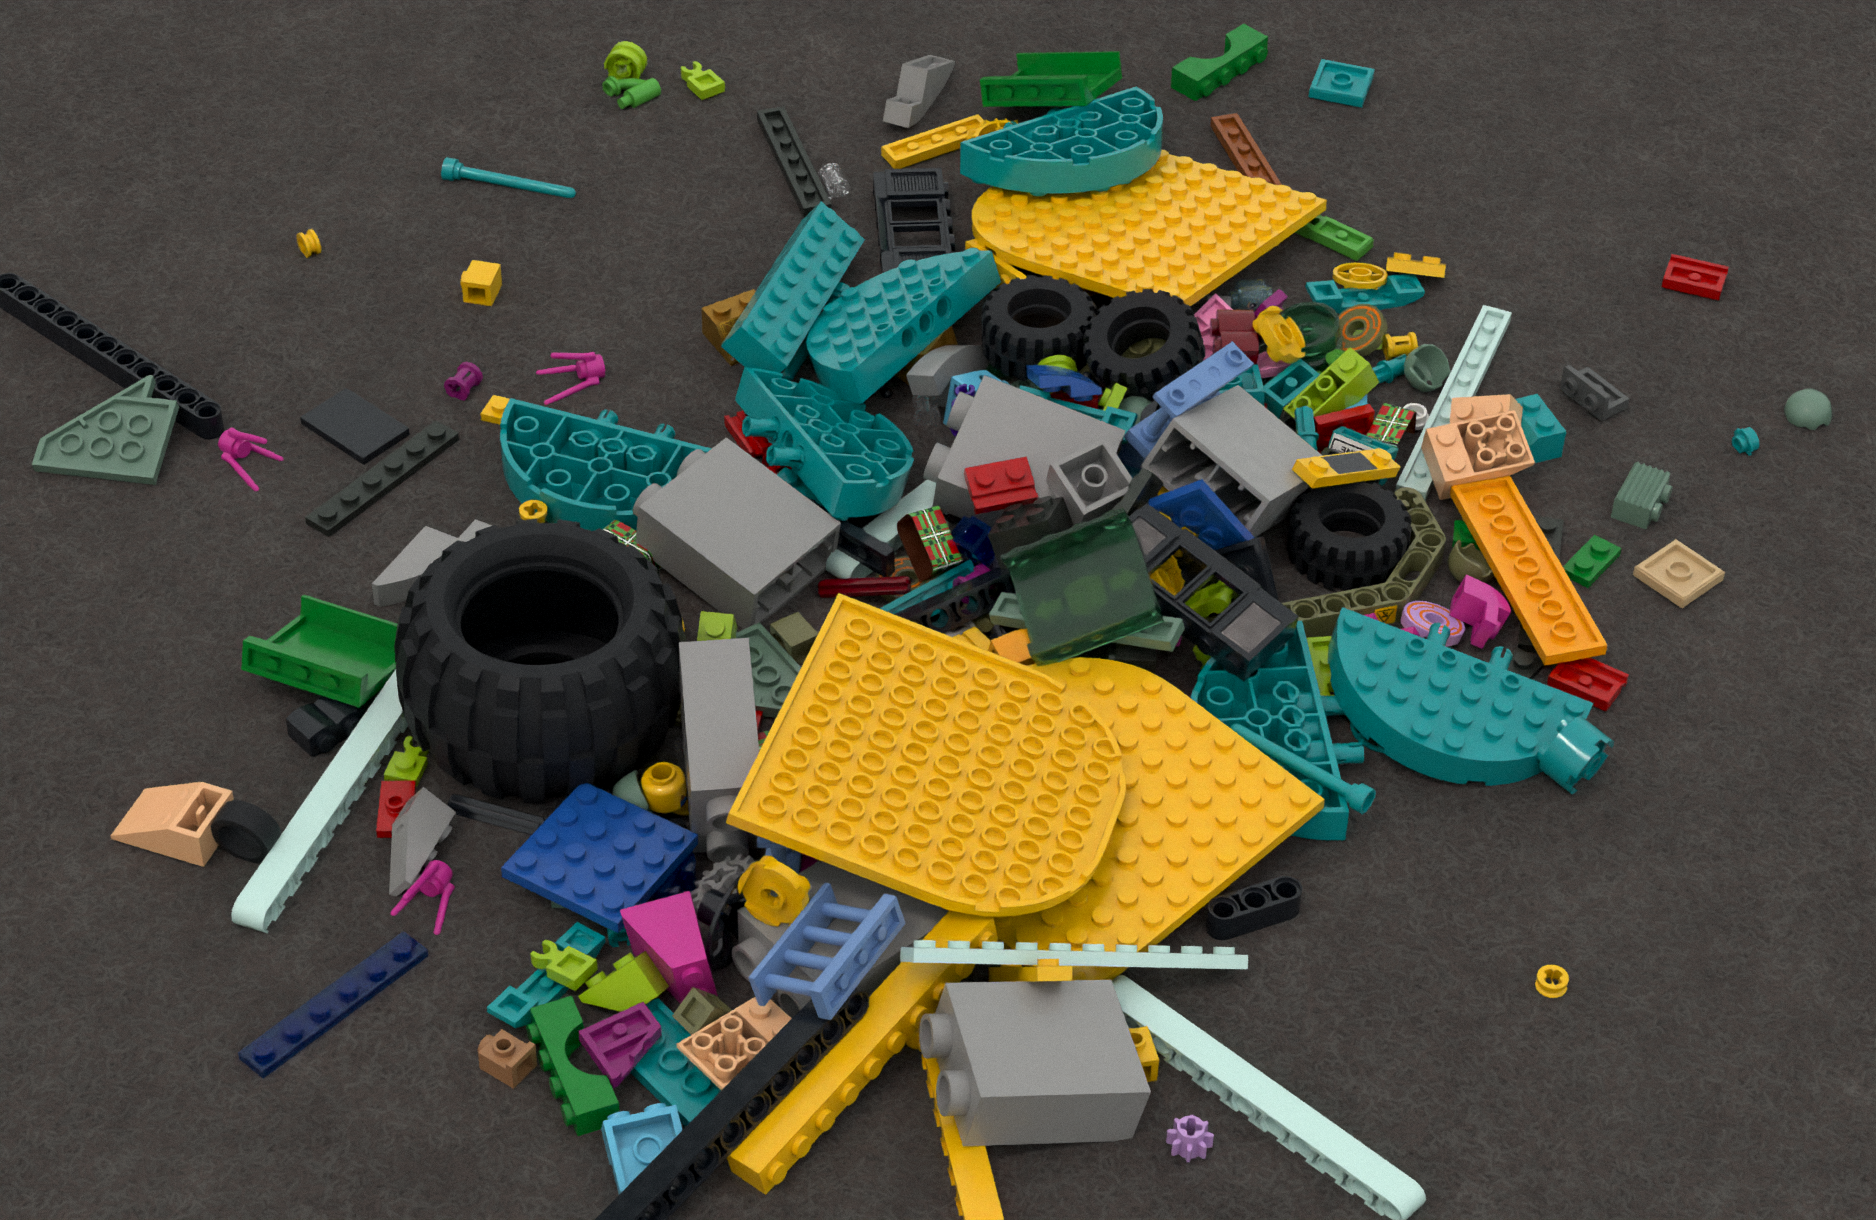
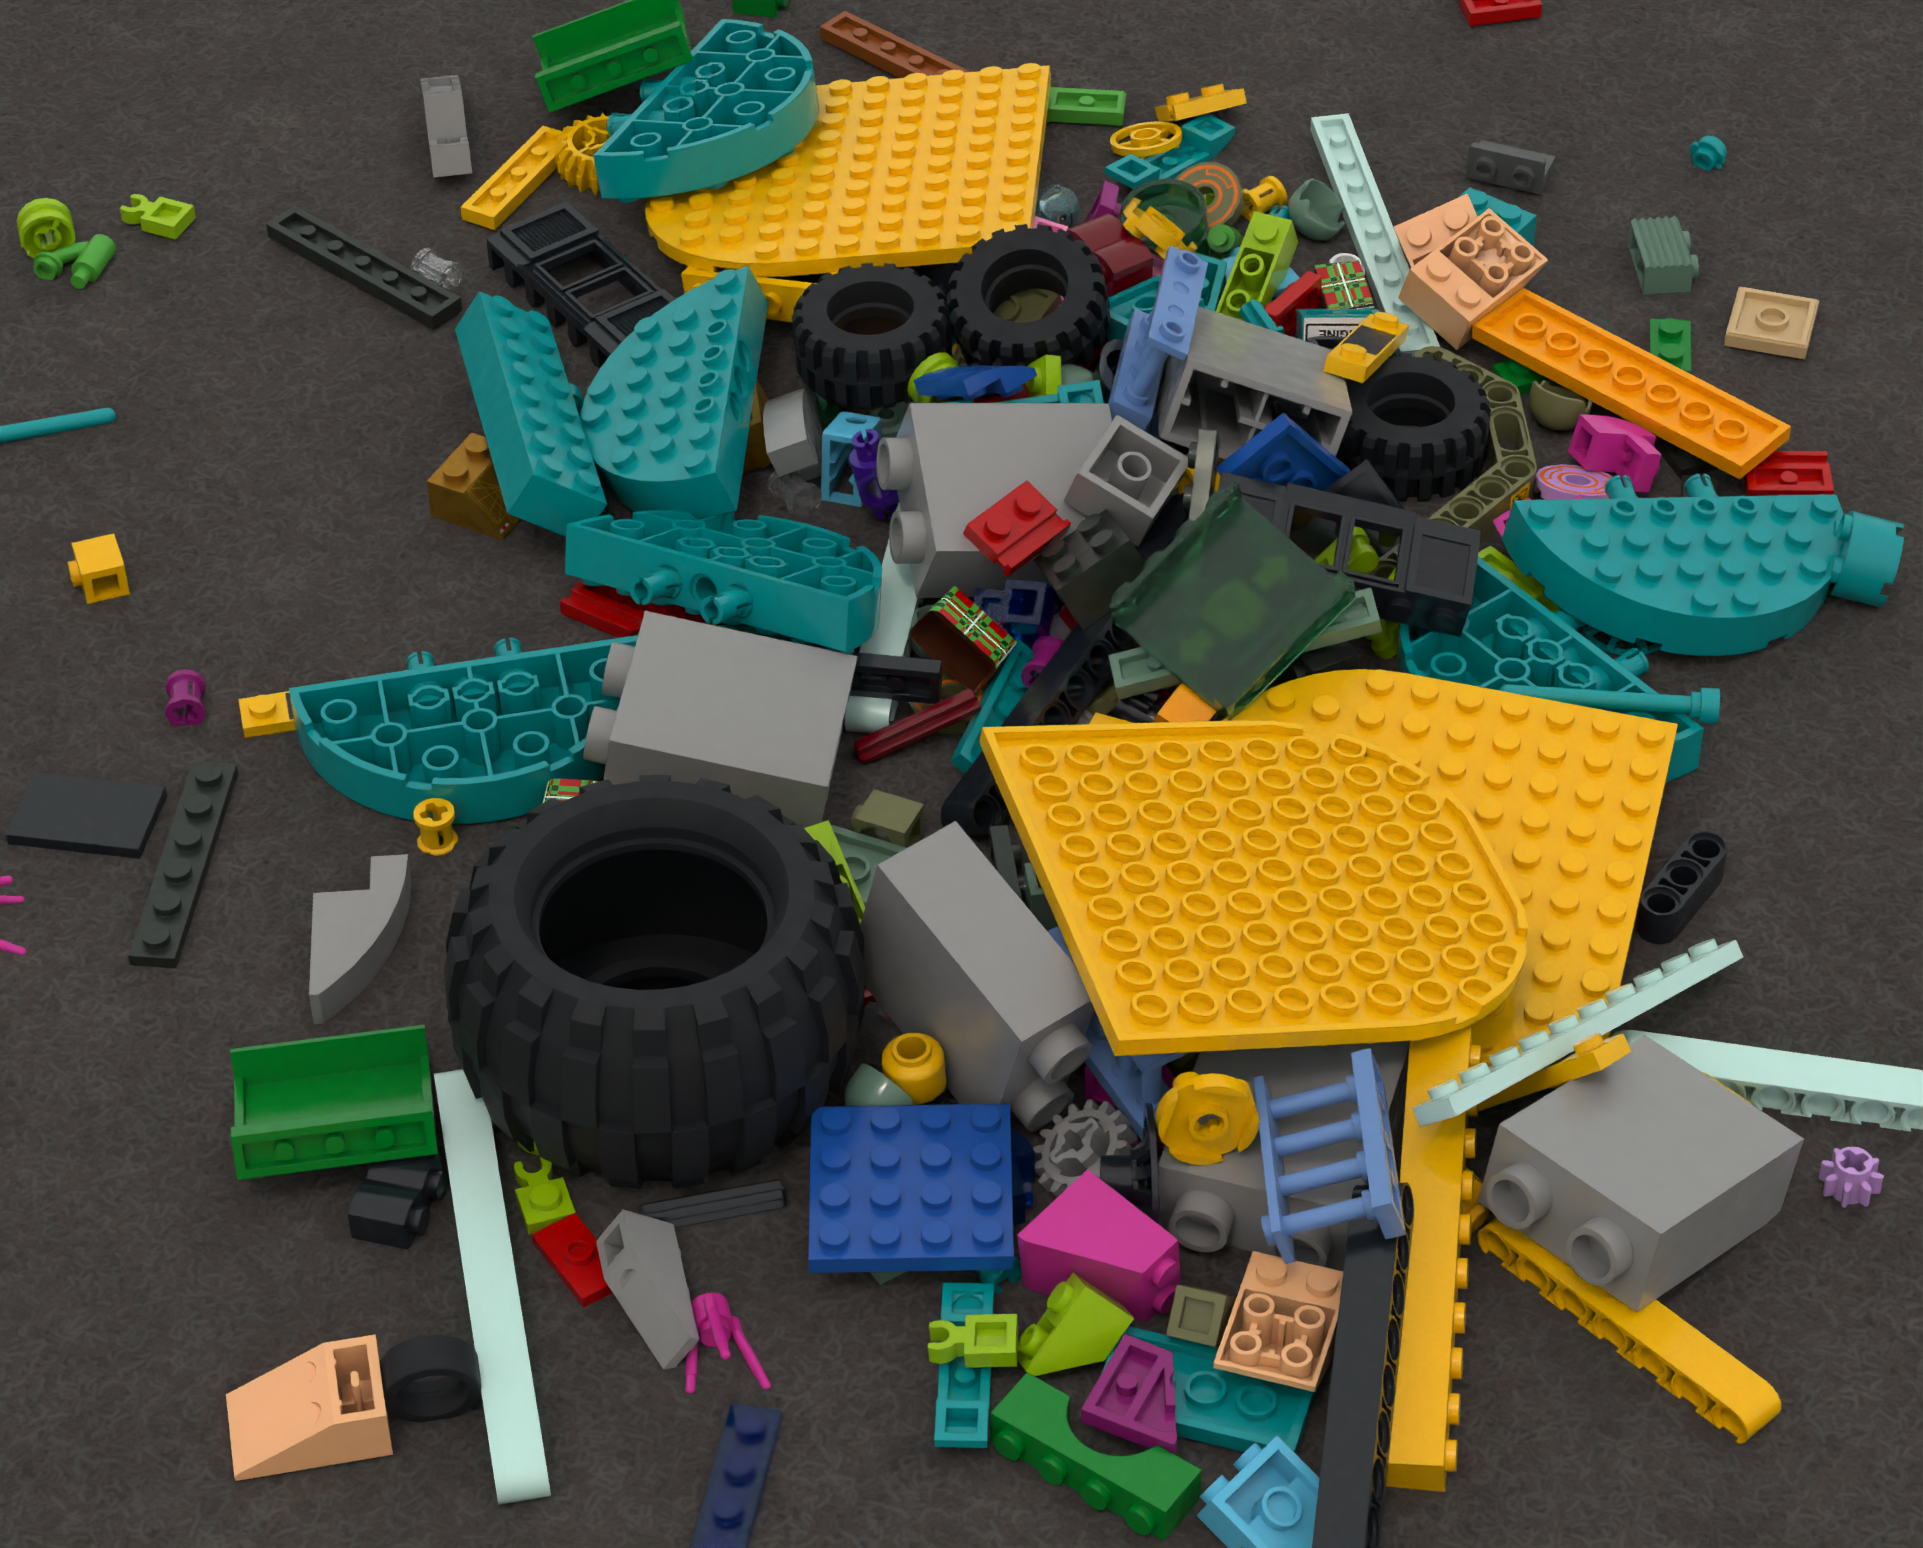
camera: 30 degrees left, 0 degrees up
(506, 1057) = (1002, 1490): medium nougat brick -> none
(589, 367) = (333, 614): dark pink plant -> none
(1808, 409) = (1738, 94): sand green hair -> none

